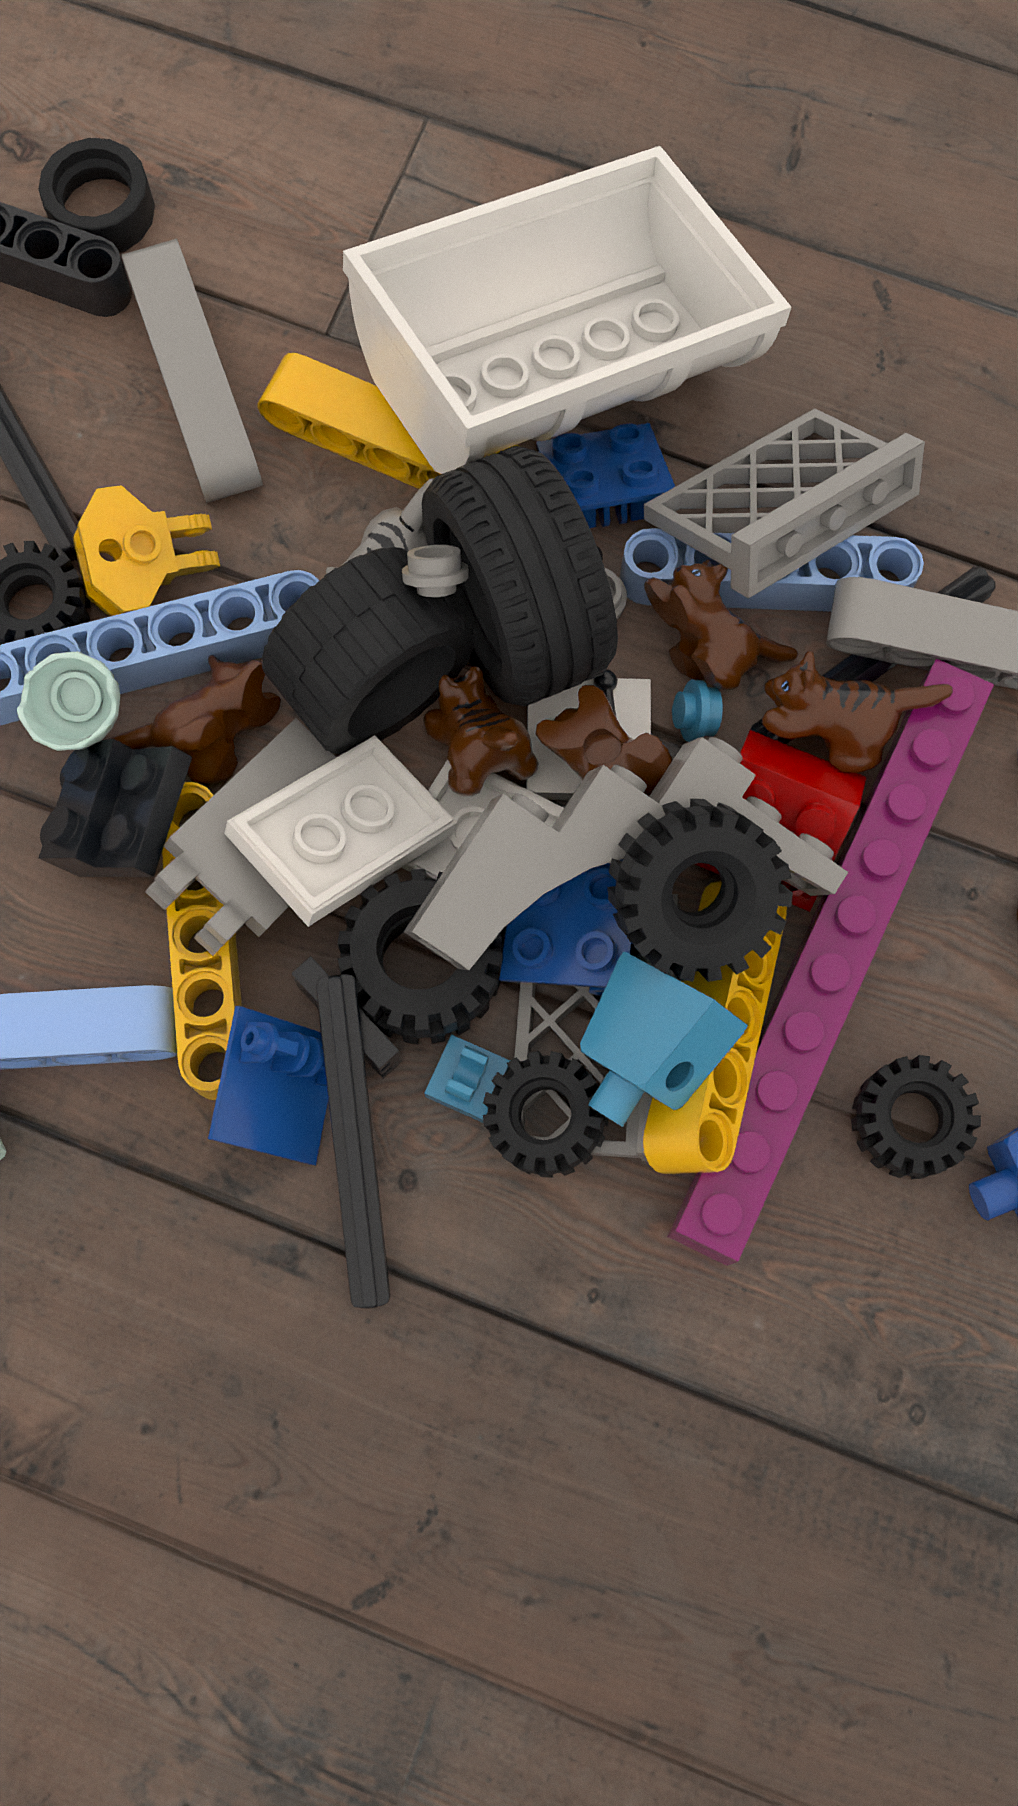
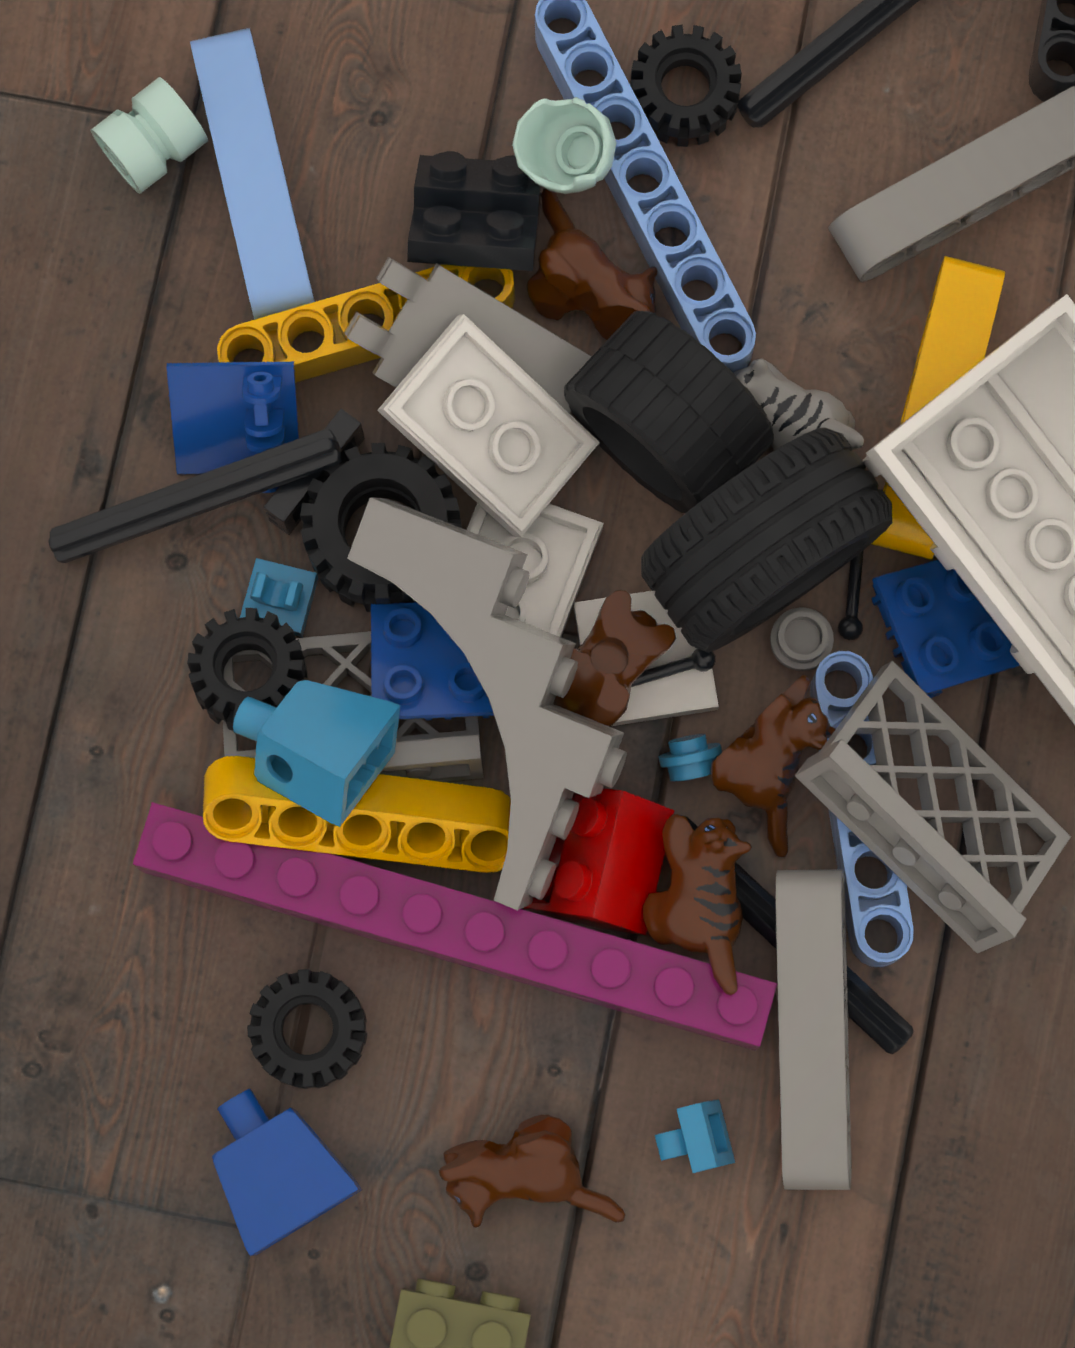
camera: 85 degrees right, 5 degrees up
(140, 549) = (754, 177): yellow hinge -> none
(435, 570) = (731, 447): light grey plate -> none
(477, 735) = (611, 543): reddish brown animal -> none
(737, 916) = (418, 763): black tyre -> none

